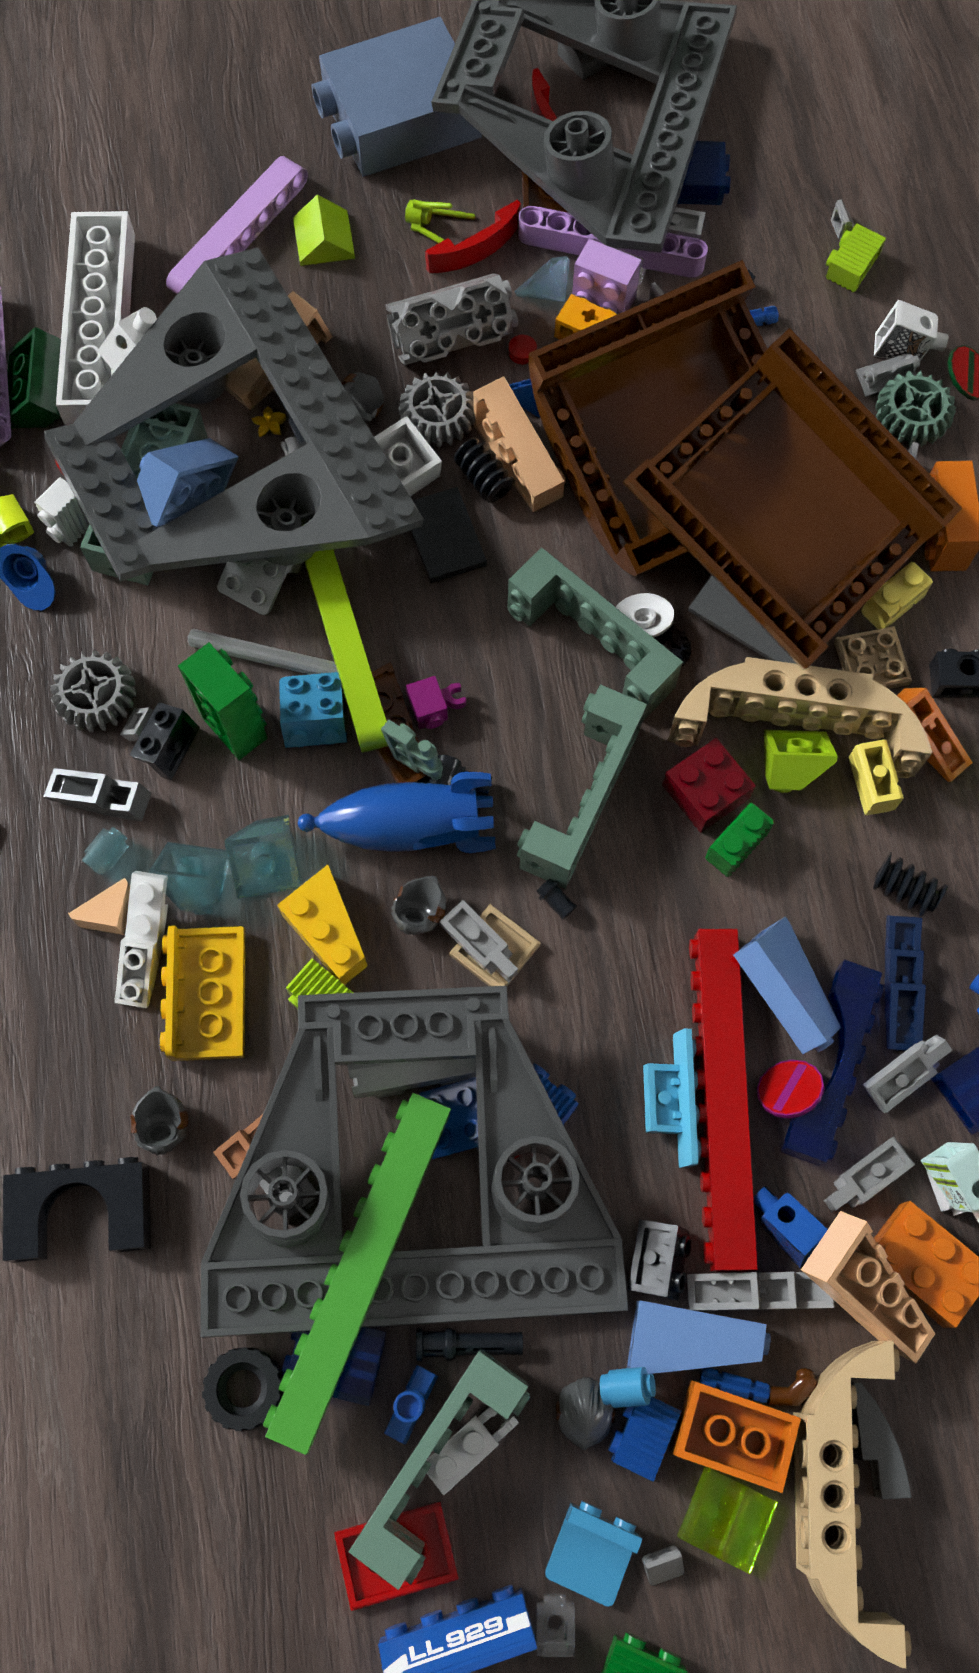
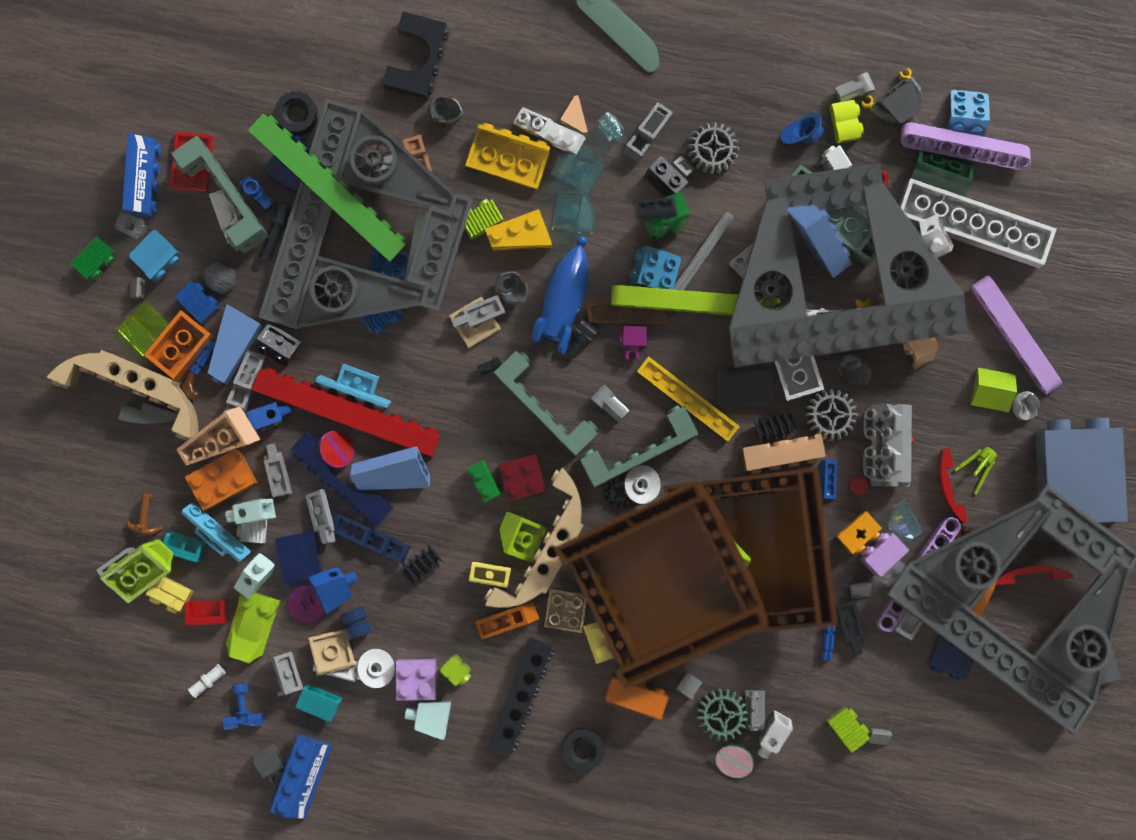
camera: 115 degrees right, 15 degrees up
(220, 680) = (655, 209): none -> black bracket
(335, 189) = (1026, 405): none -> light grey hair
(407, 750) = (600, 311): sand green plate -> none
(490, 601) = (687, 397): none -> yellow plate
(540, 709) = (606, 400): none -> light grey piece
(627, 1387) = (220, 299): dark azure brick -> none

